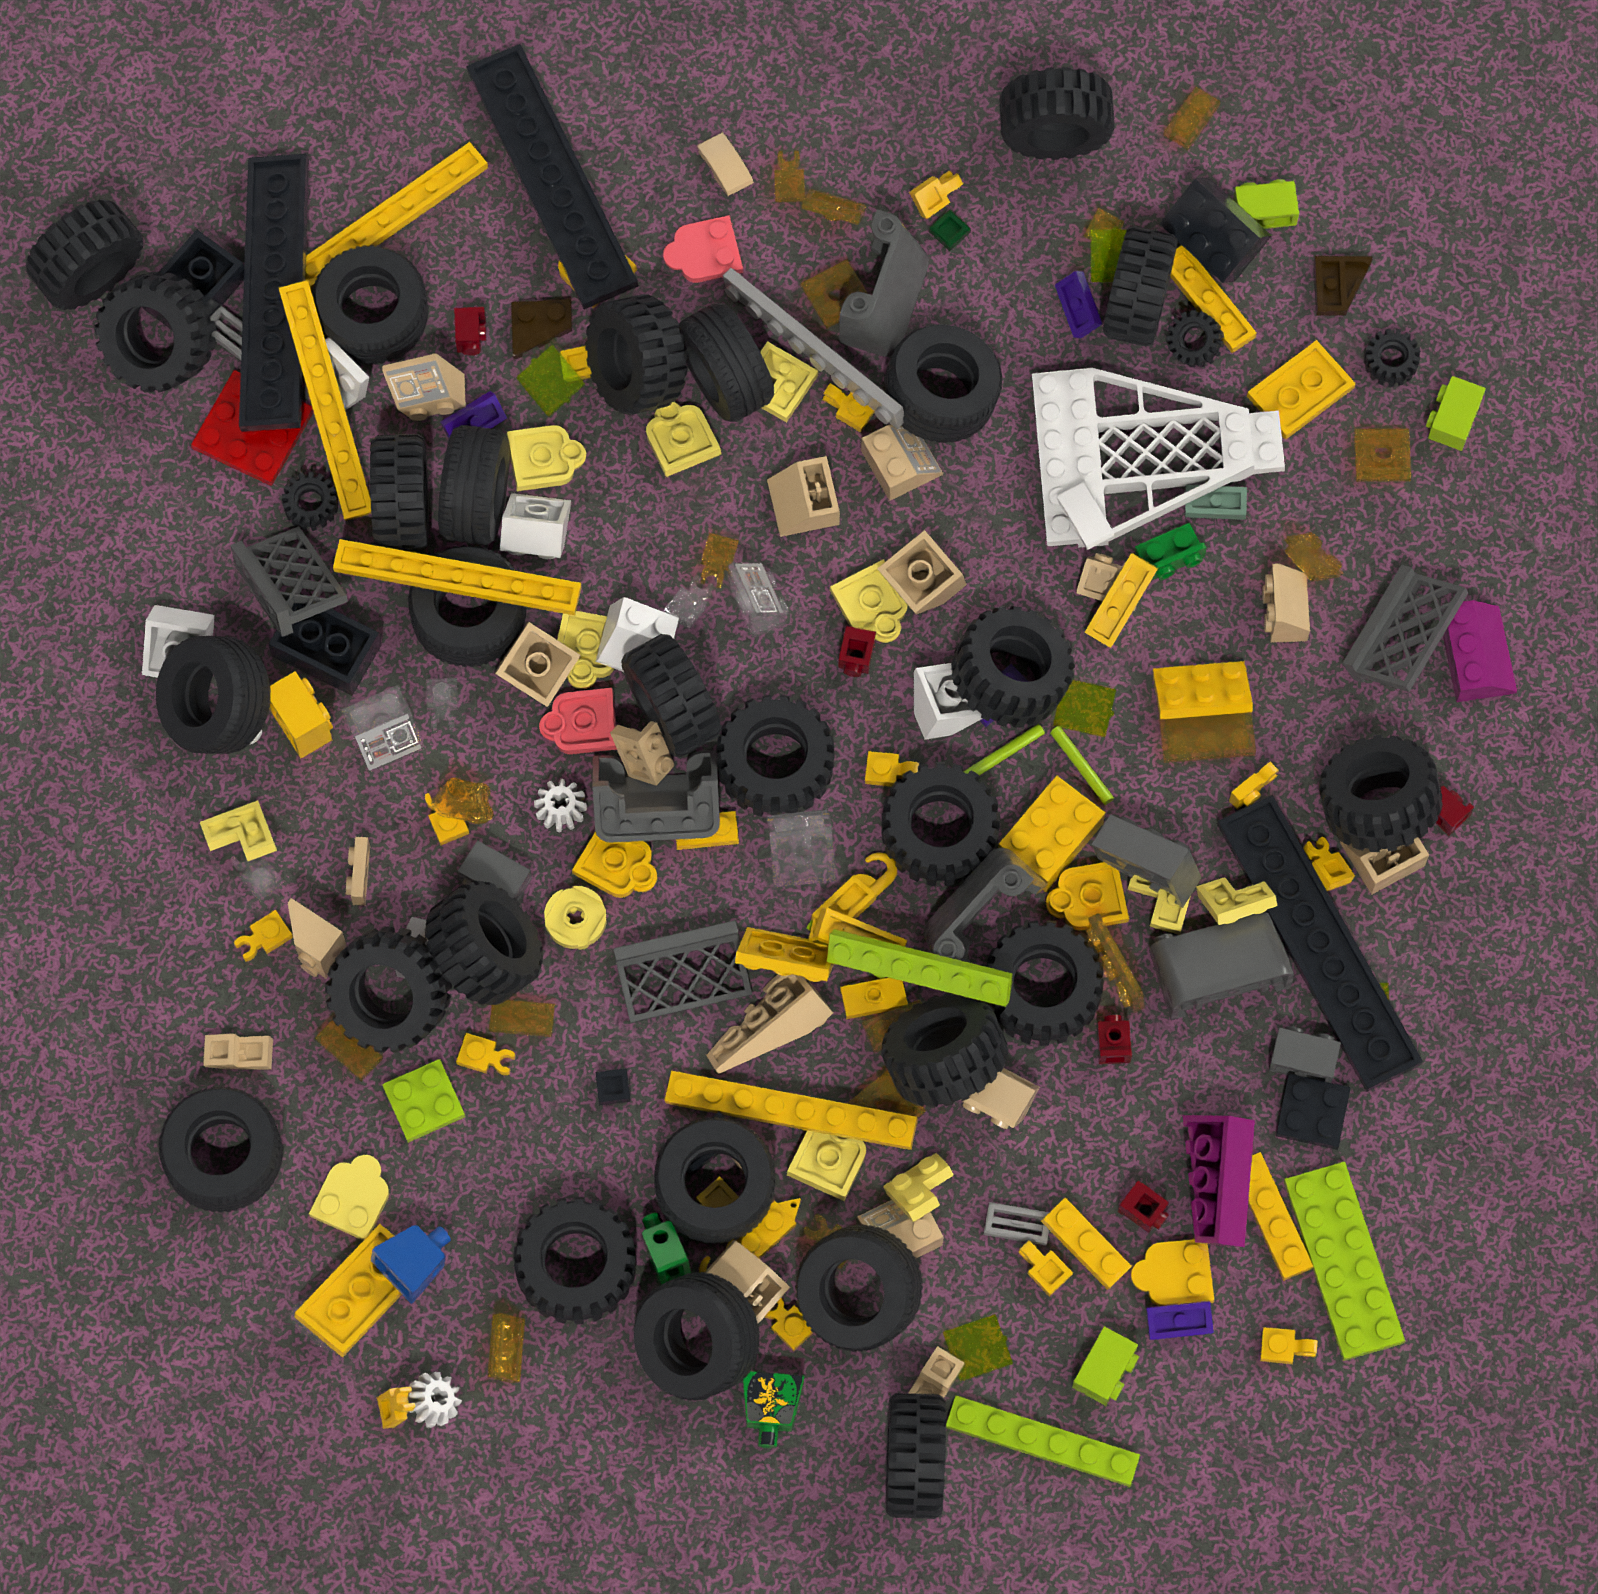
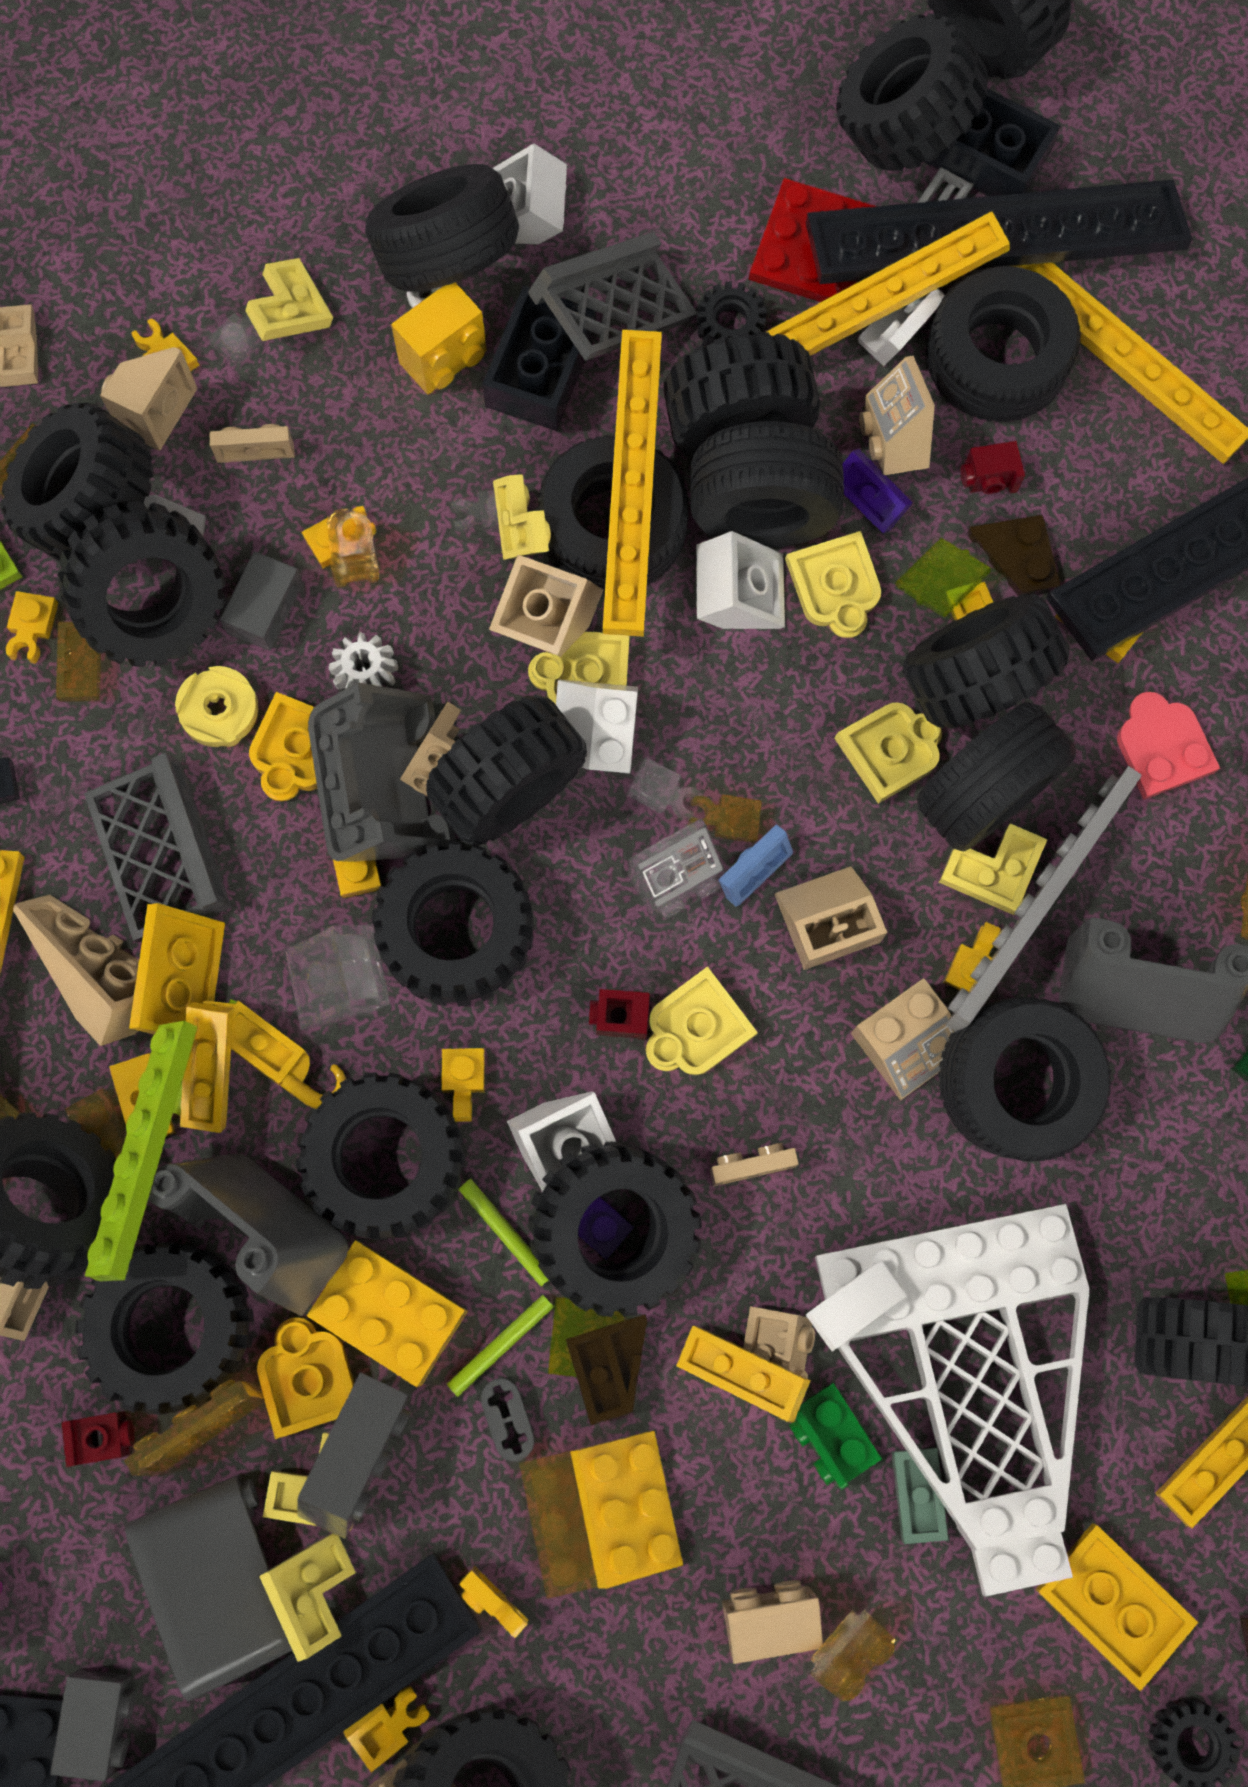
camera: 80 degrees right, 5 degrees up
(383, 729) = (441, 443): clear slope -> none
(469, 677) = (520, 530): none -> light yellow plate
(581, 721) = (480, 676): coral plate -> none
(757, 544) = (756, 865): none -> medium blue plate
(817, 289) = (1158, 919): clear yellow piece -> none
(922, 574) = (739, 1087): tan slope -> none
(976, 565) = (770, 1160): none -> tan plate
(1078, 304) = (1185, 1258): dark purple plate -> none
(1106, 691) = (609, 1367): none -> dark brown wing
(1132, 758) = (497, 1422): none -> dark grey beam
(1207, 351) = (1176, 1412): black tyre -> none

